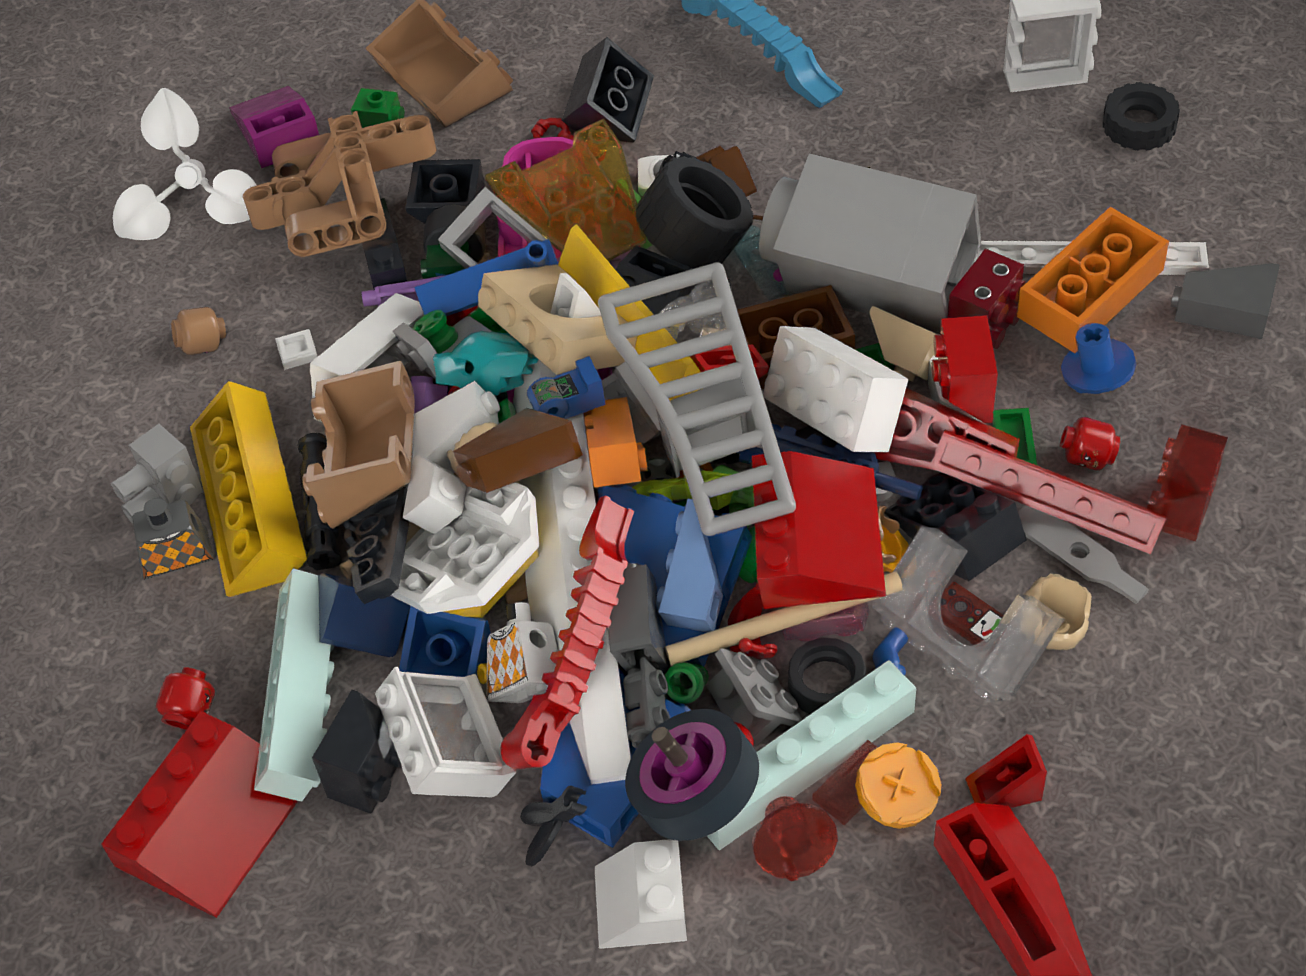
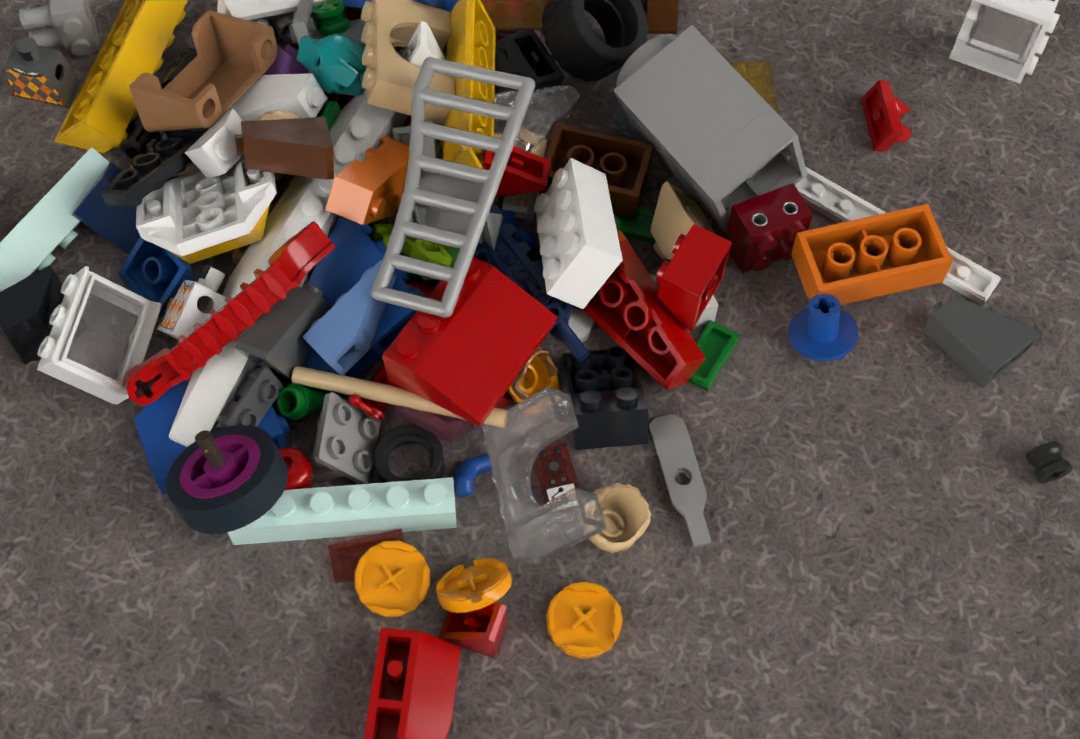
camera: 25 degrees right, 10 degrees up
(550, 818) = (128, 445): black piece -> none
(568, 392) = (365, 122): blue leg -> none
(641, 896) = (148, 547): white slope -> none
(794, 839) = (279, 570): clear red piece -> none
(980, 743) = (473, 587): none -> light orange tile
(999, 164) = (882, 116): none -> red tile
(1048, 492) = (690, 415): tile -> none
(1090, 443) = (761, 394): red head -> none
(1094, 719) = (584, 620): none -> light orange tile
(1140, 97) = (1043, 117): black tyre -> none
(1188, 480) = (811, 475): clear red slope -> none

